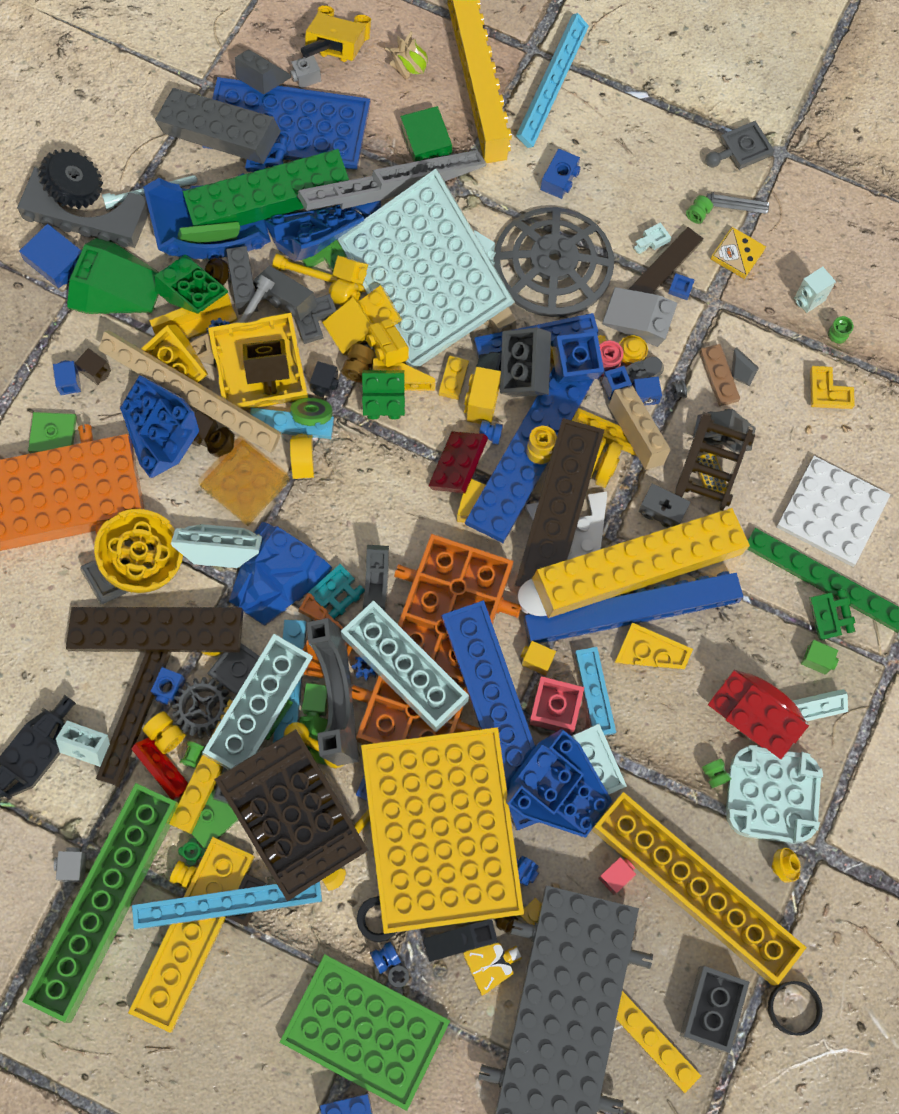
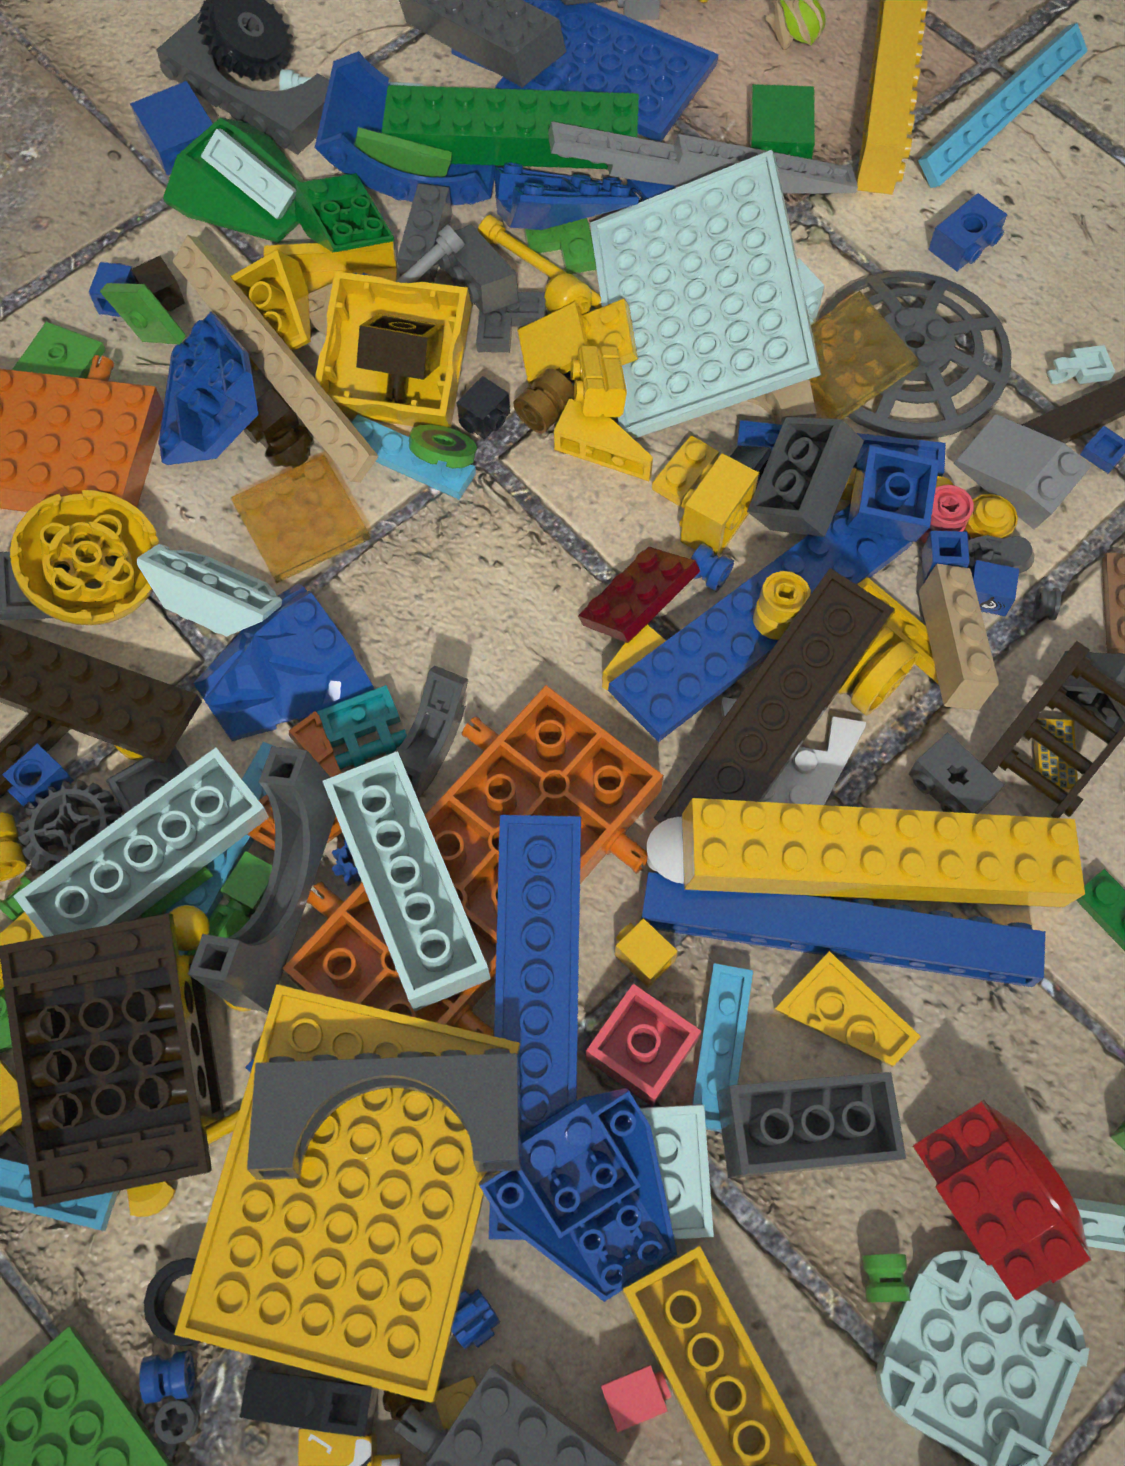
camera: 25 degrees right, 5 degrees down
(99, 390) = (143, 313): none -> bright green plate
(121, 277) = (249, 173): none -> light aqua plate
(218, 270) = (395, 211): dark brown plate -> none
(302, 456) = (398, 505): yellow brick -> none
(350, 269) = (589, 265): yellow brick -> none
(383, 393) = (563, 454): green plate -> none
(488, 758) = (298, 1096): none -> dark grey arch
(526, 277) = (856, 357): none -> clear yellow plate
(654, 713) = (810, 1124): none -> dark grey brick

